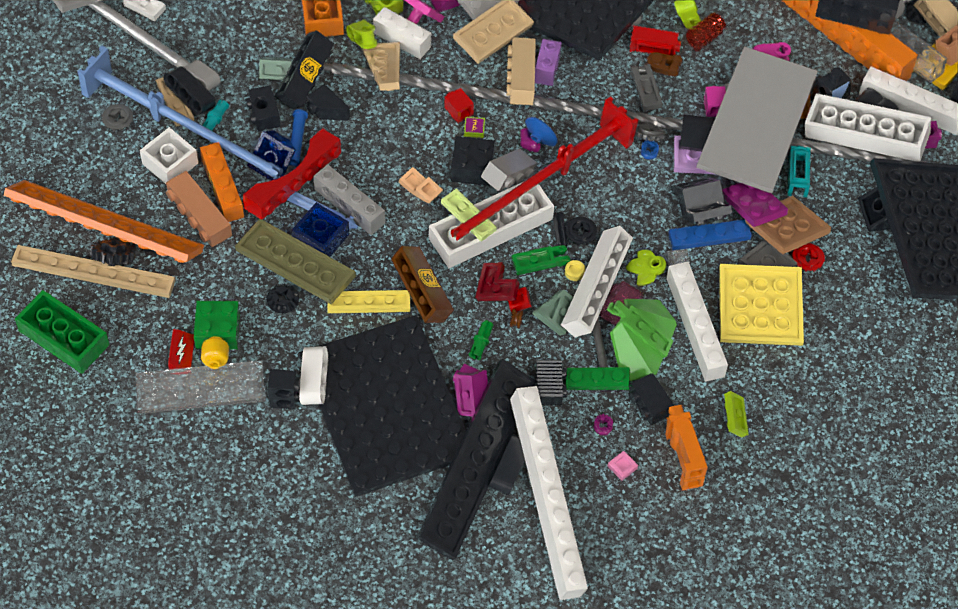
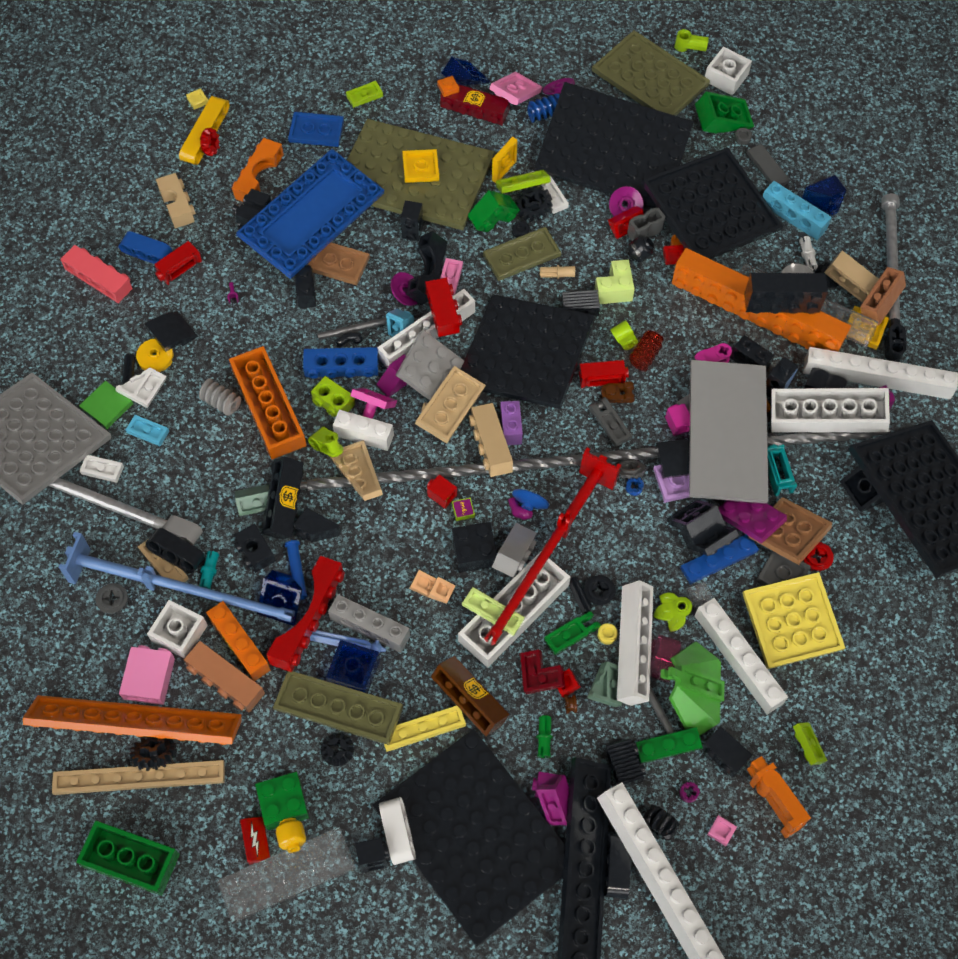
camera: 15 degrees left, 5 degrees up
(128, 189) = (147, 675): none -> bright pink brick
(564, 438) = (661, 822): none -> black gear
(809, 56) = (749, 352): none -> black brick

